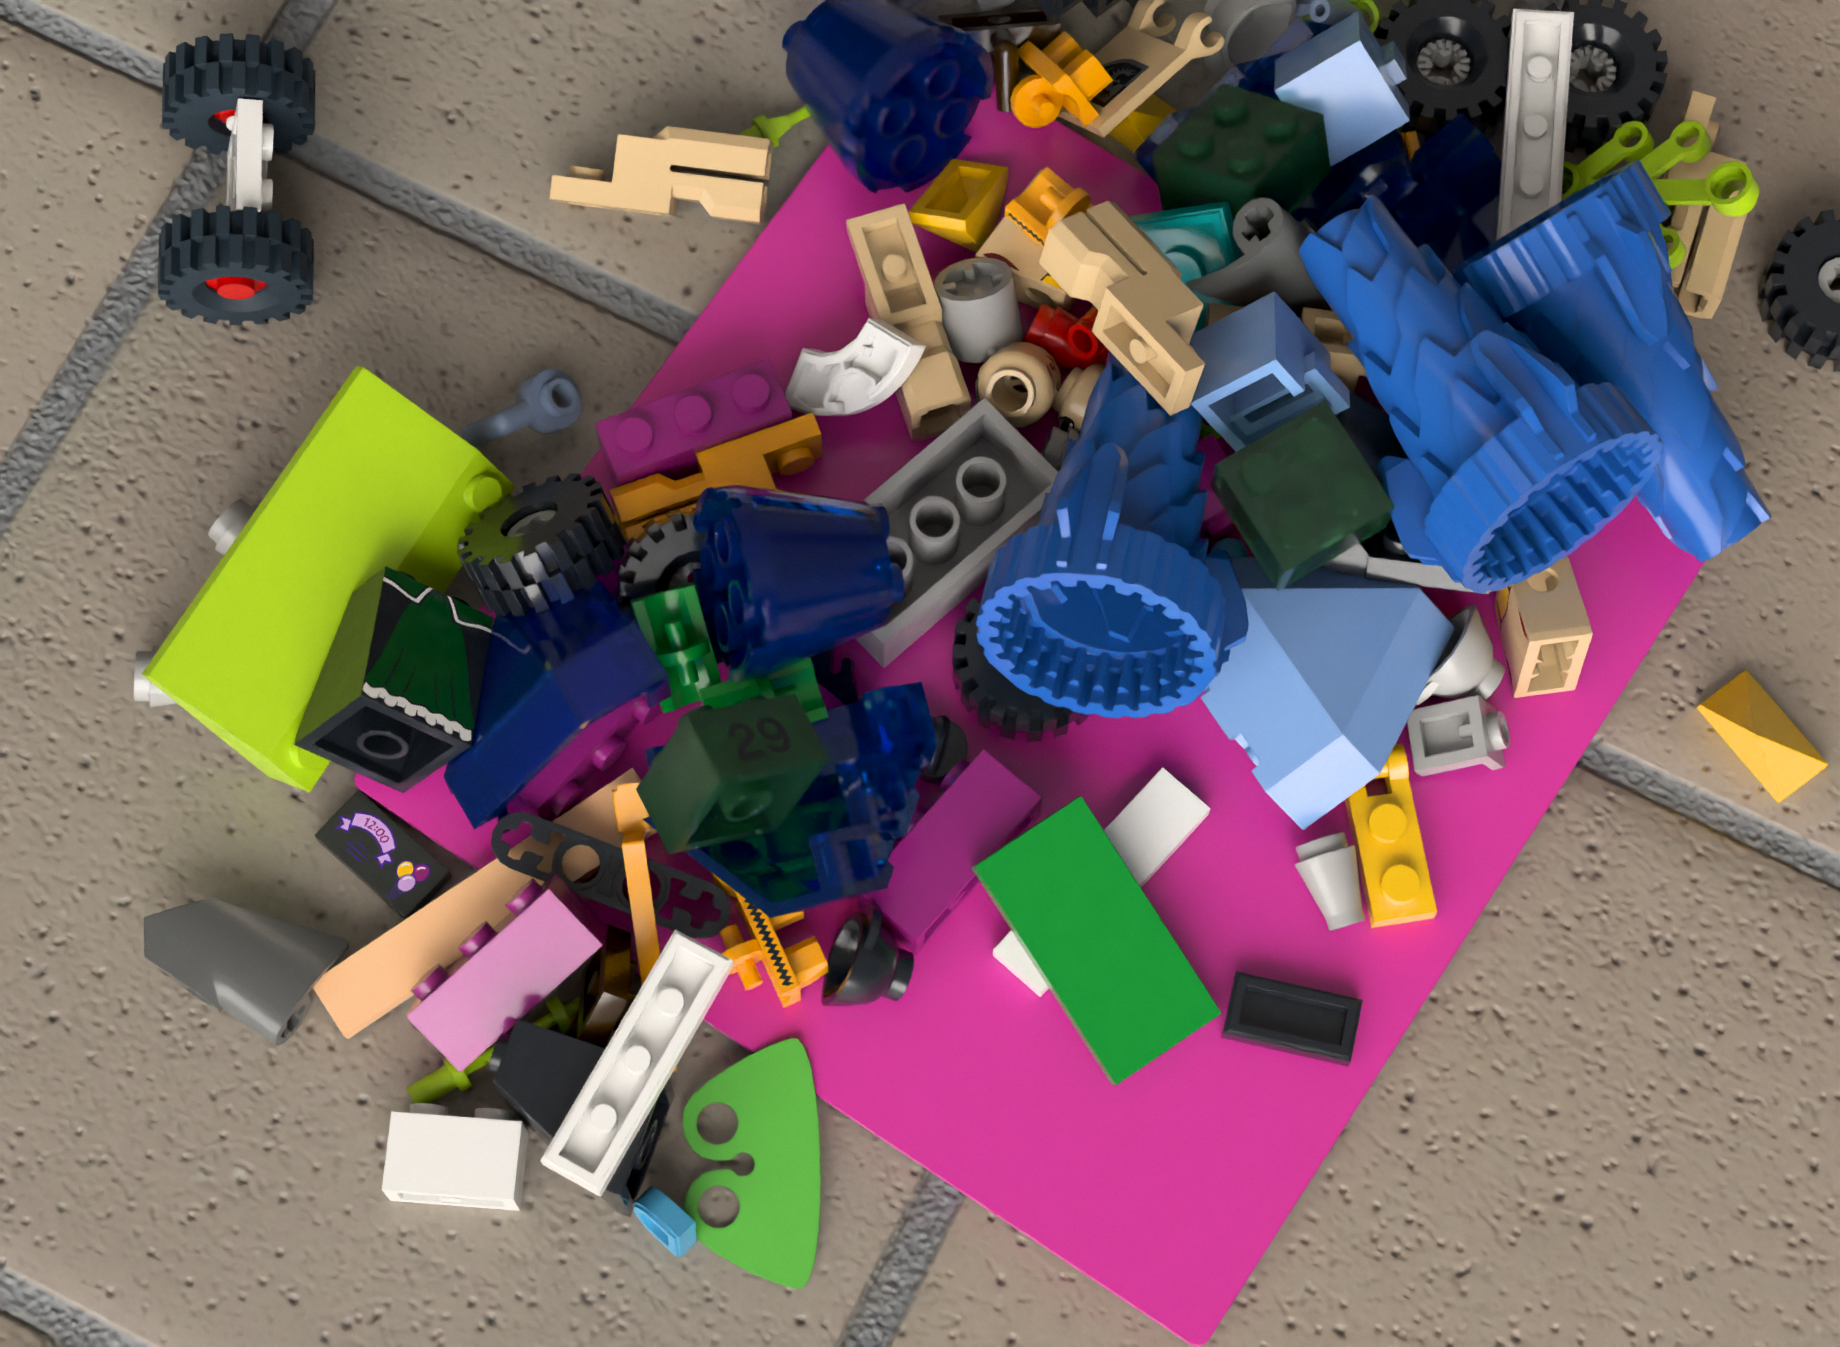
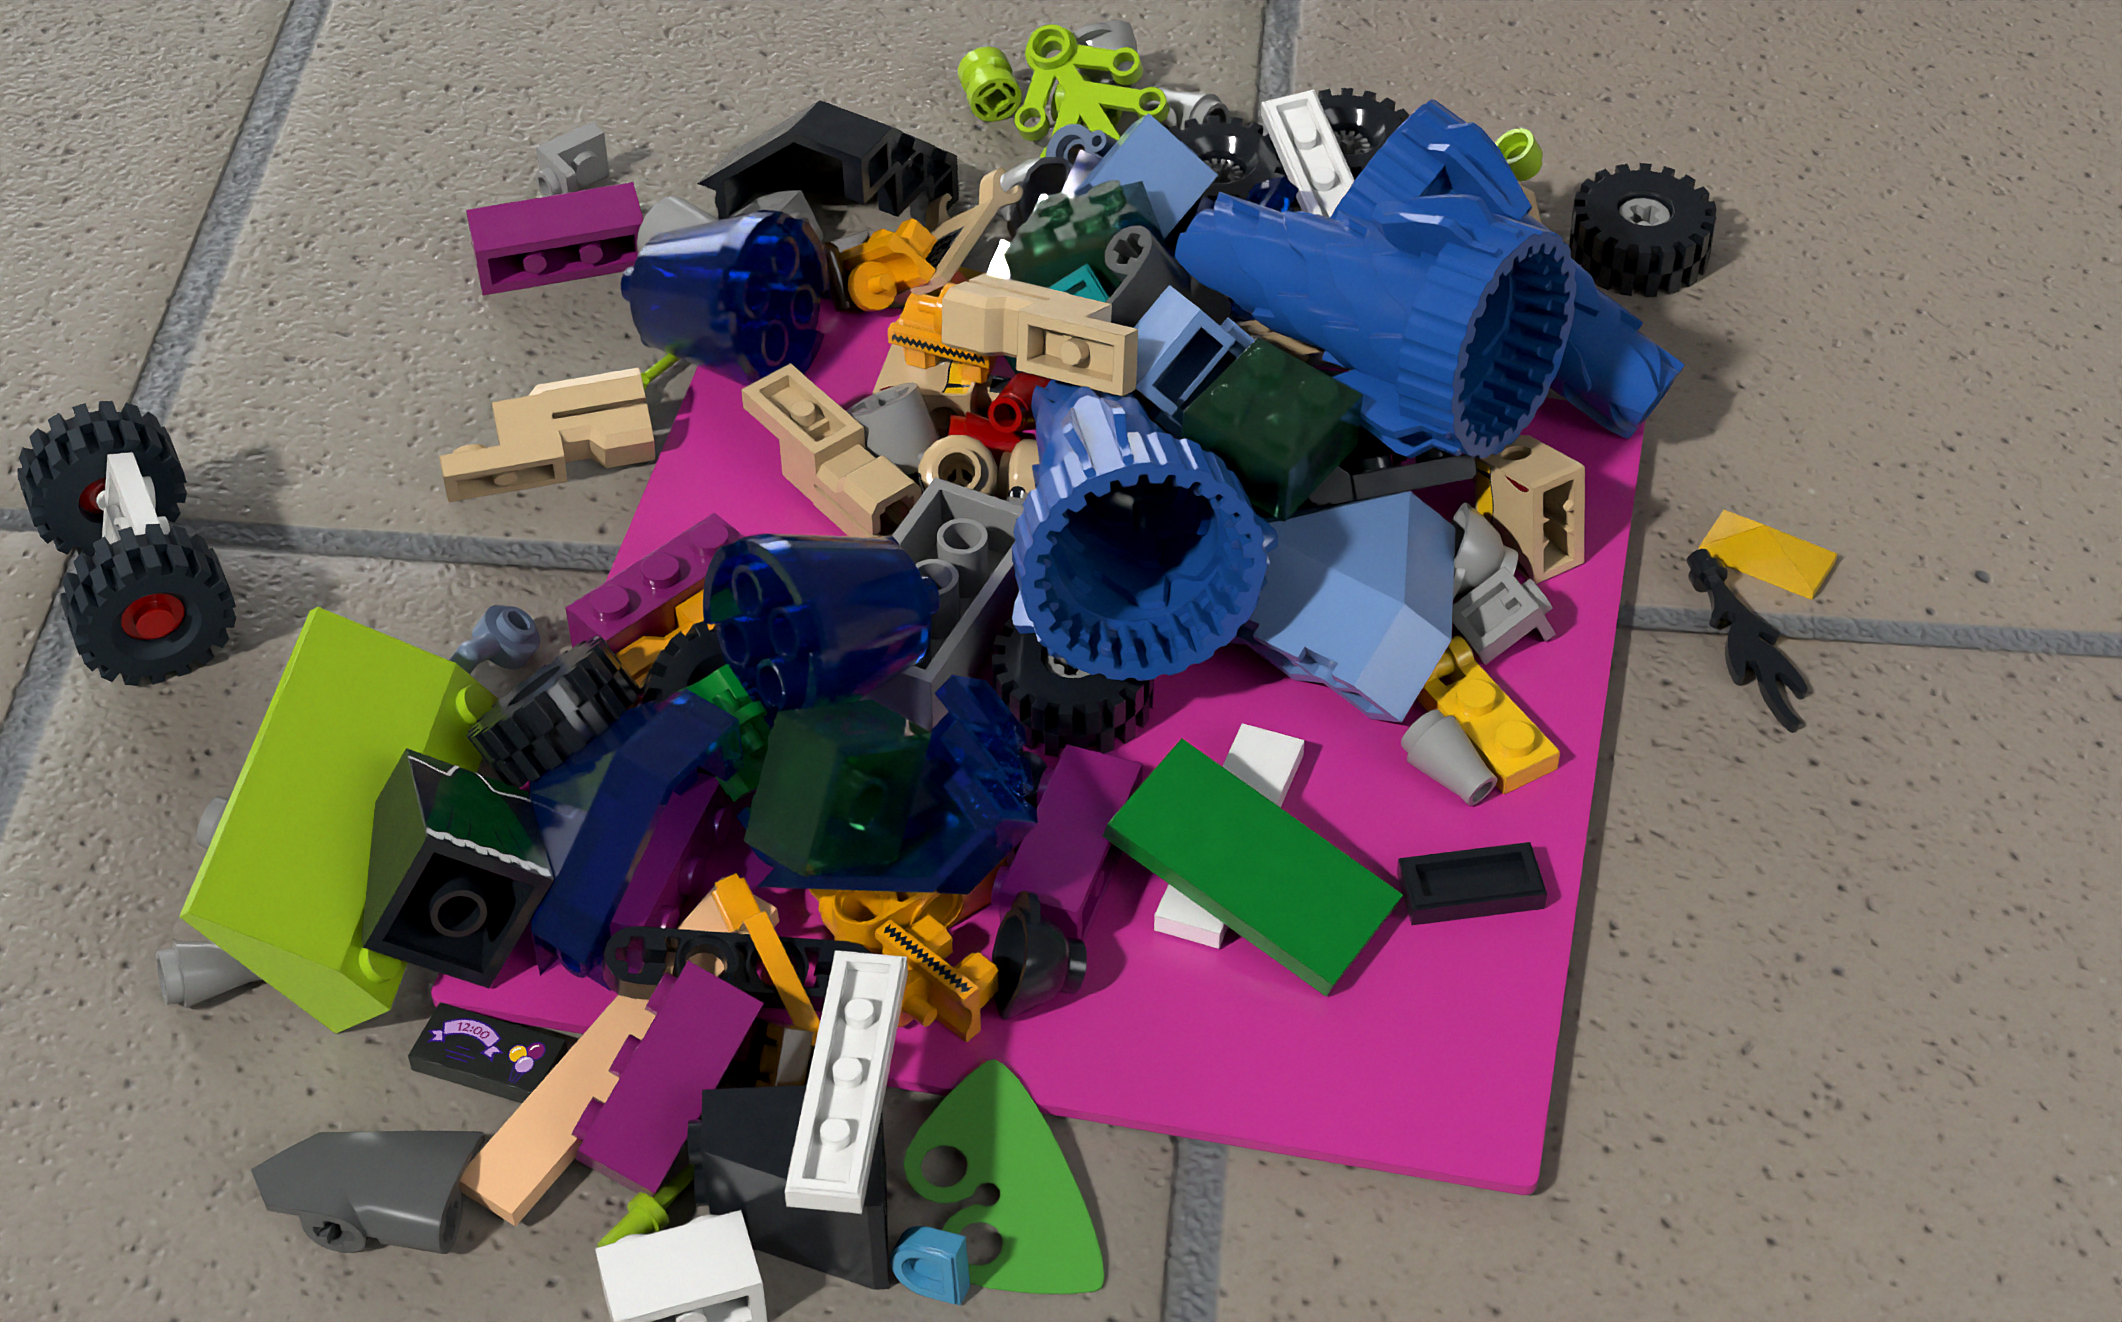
camera: 20 degrees left, 25 degrees down
(856, 375) = (811, 492): white tile -> none
(962, 203) = (843, 372): yellow slope -> none
(1682, 838) = (1748, 639): none -> black piece

